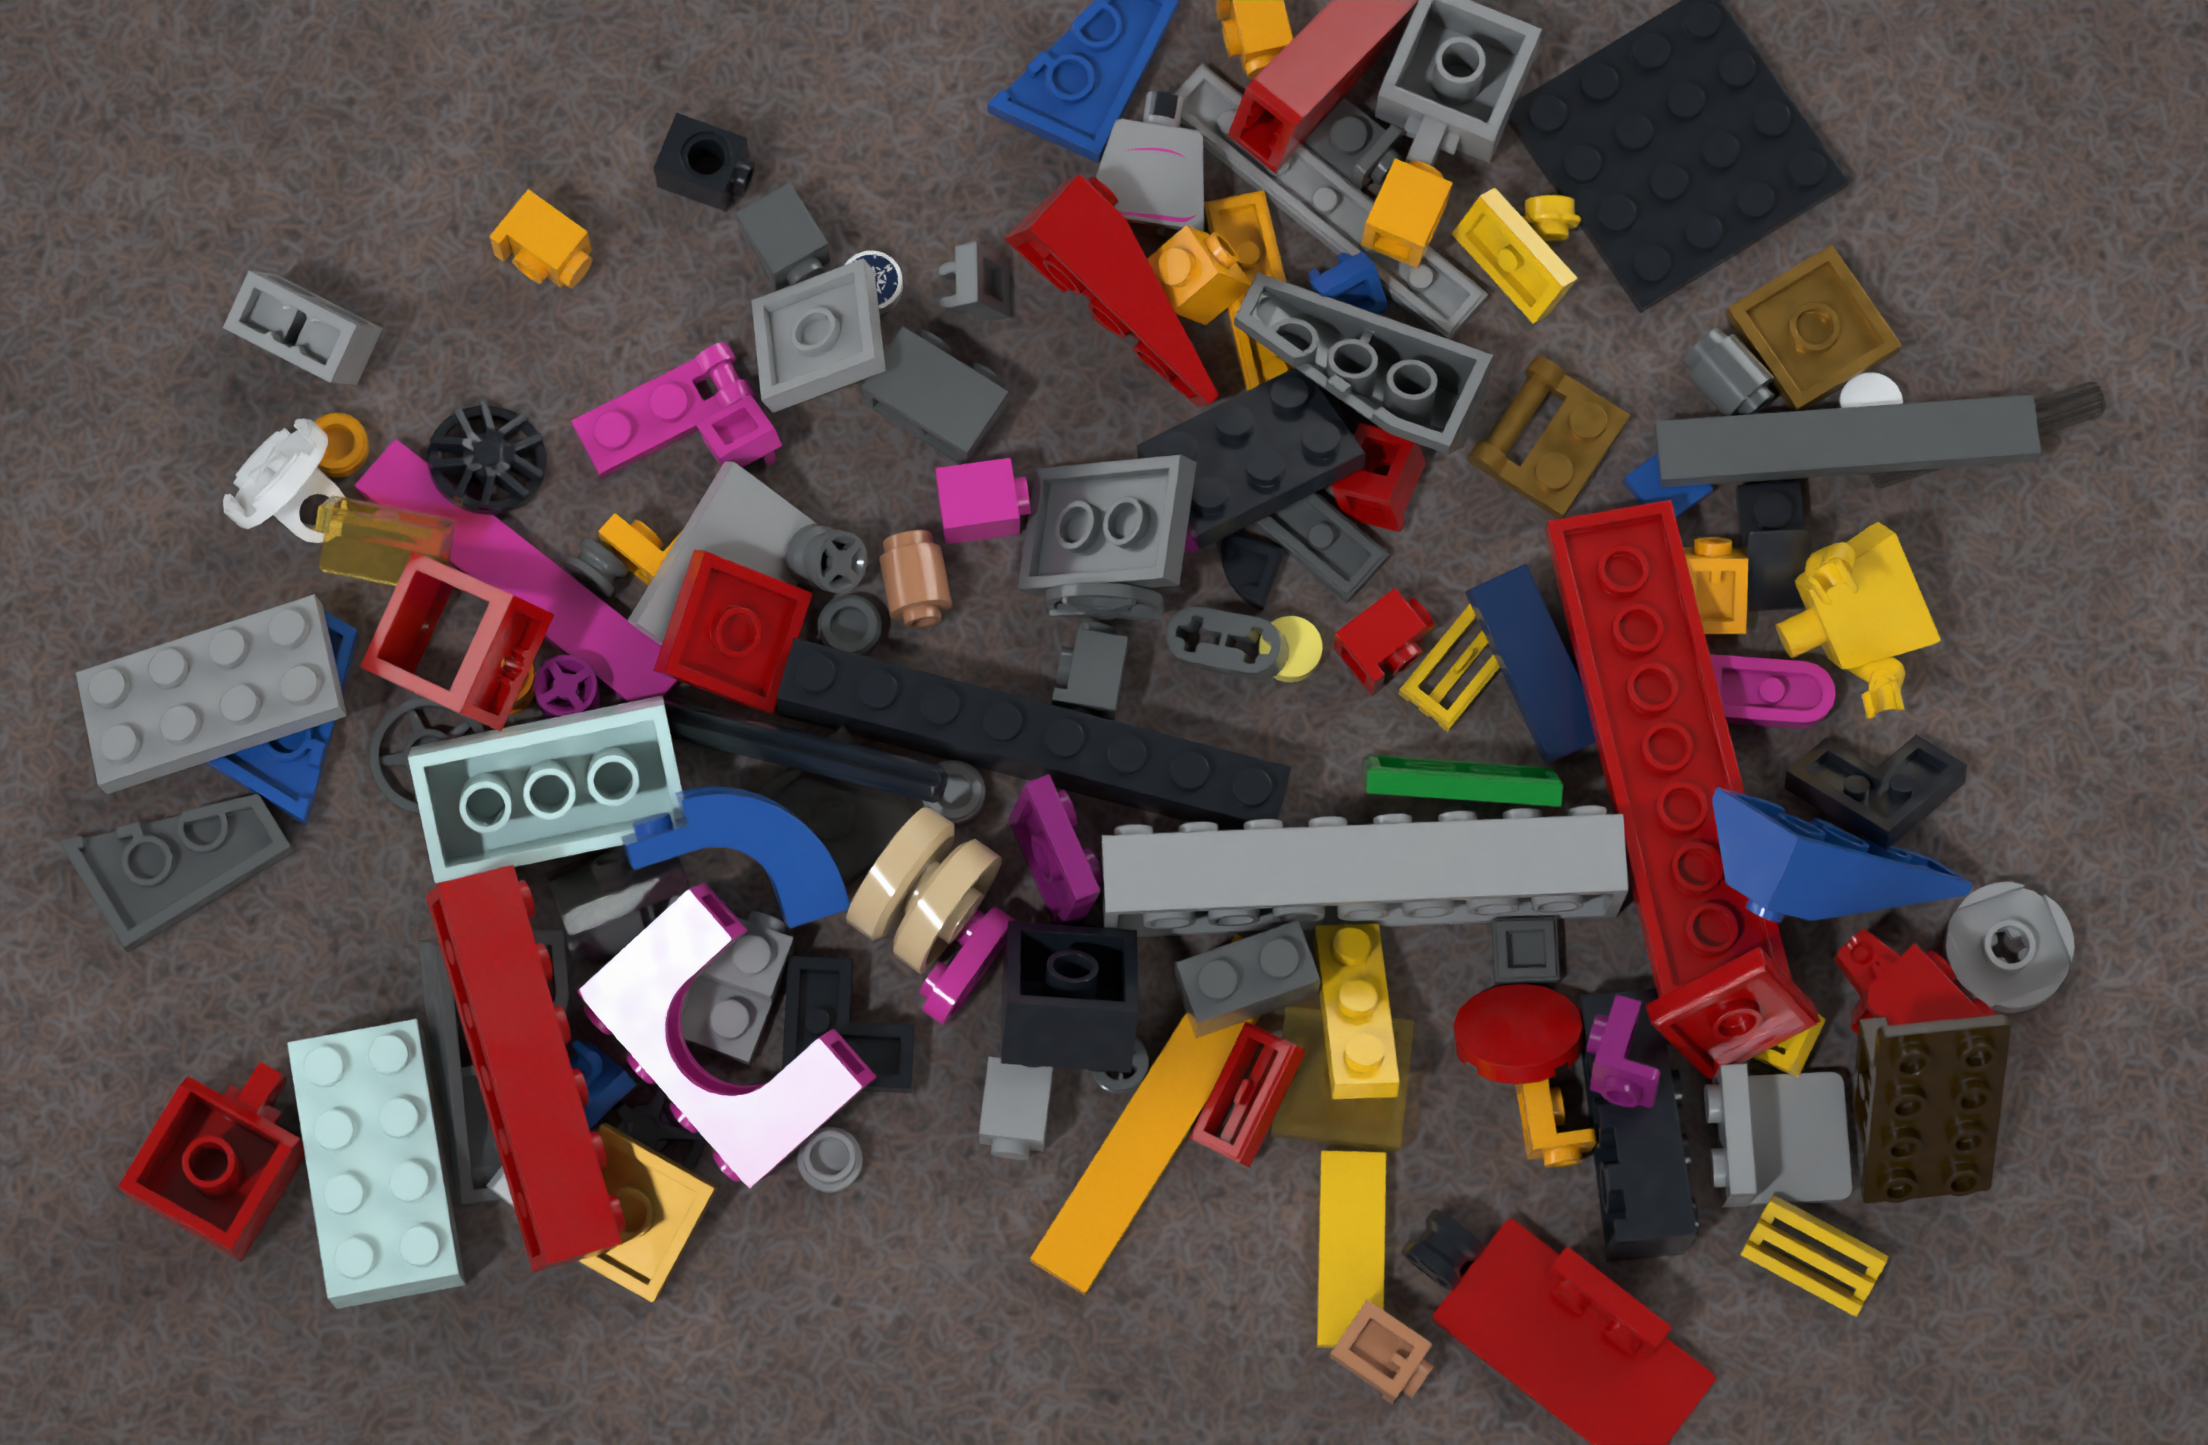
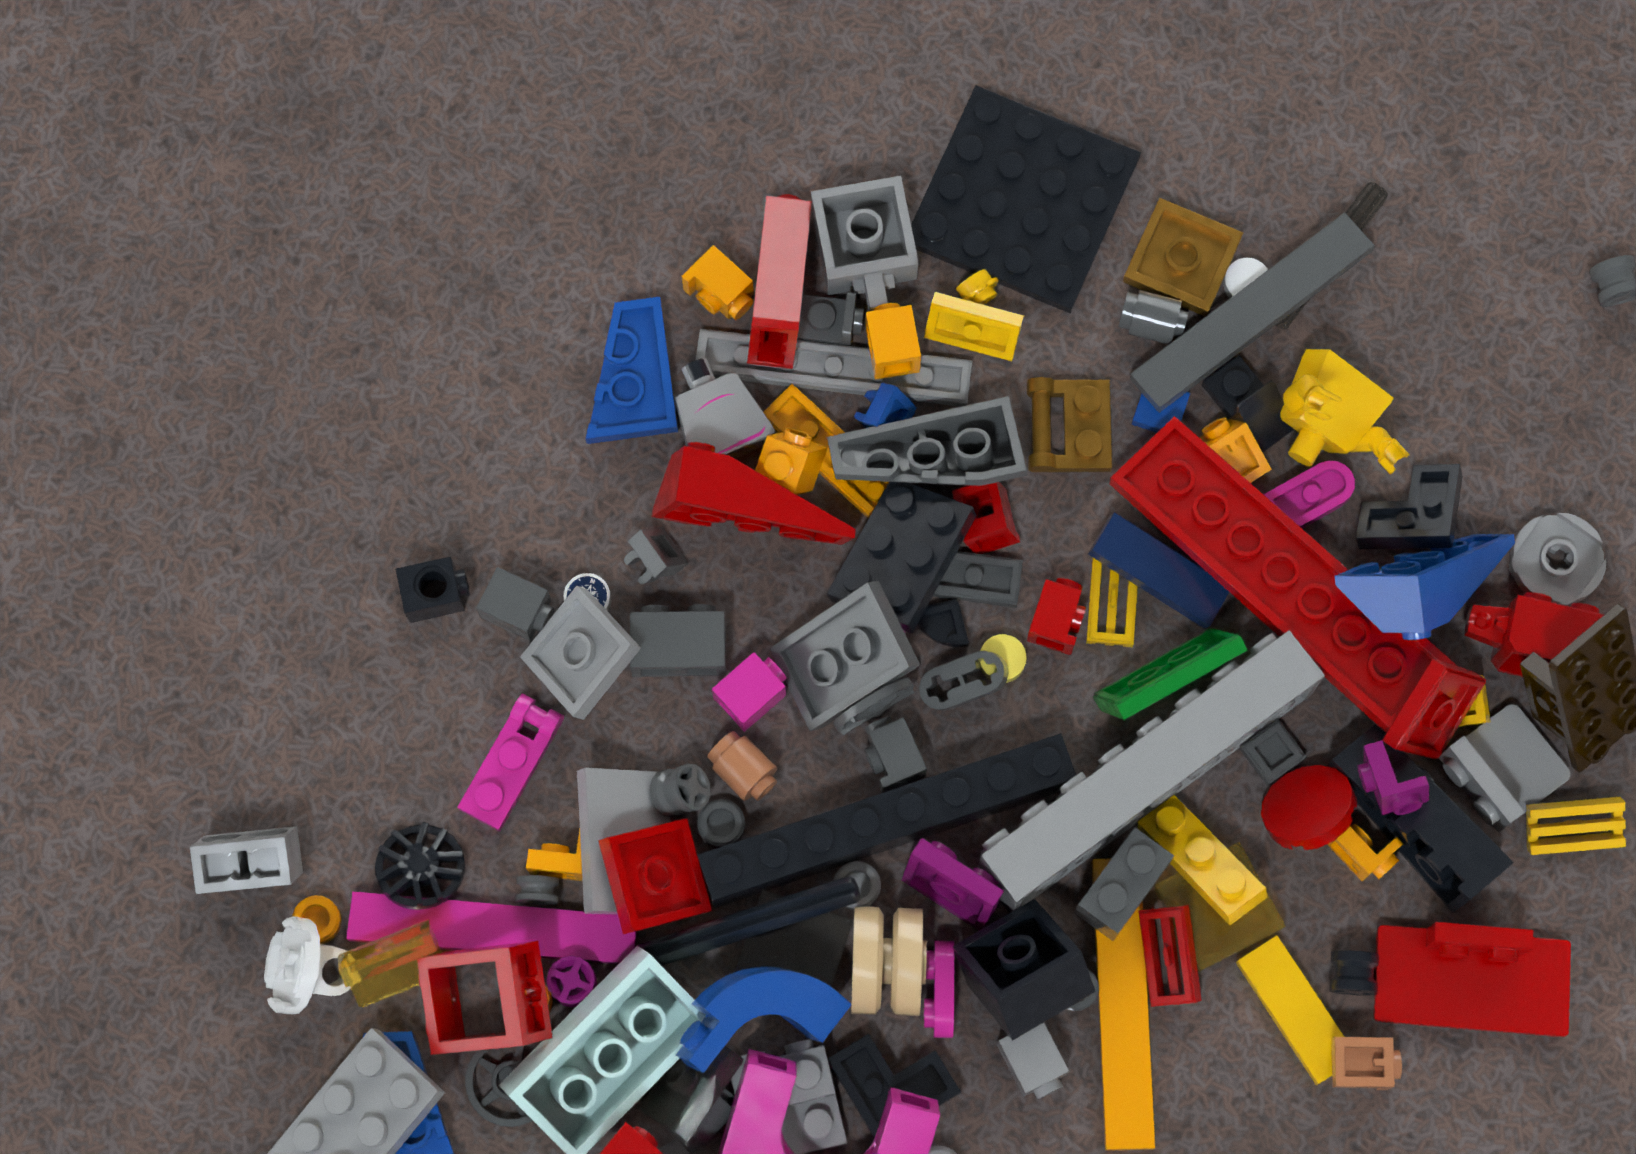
camera: 30 degrees left, 0 degrees up
(543, 242) = (364, 705): light orange brick -> none
(740, 434) = (571, 746): dark pink tile -> none

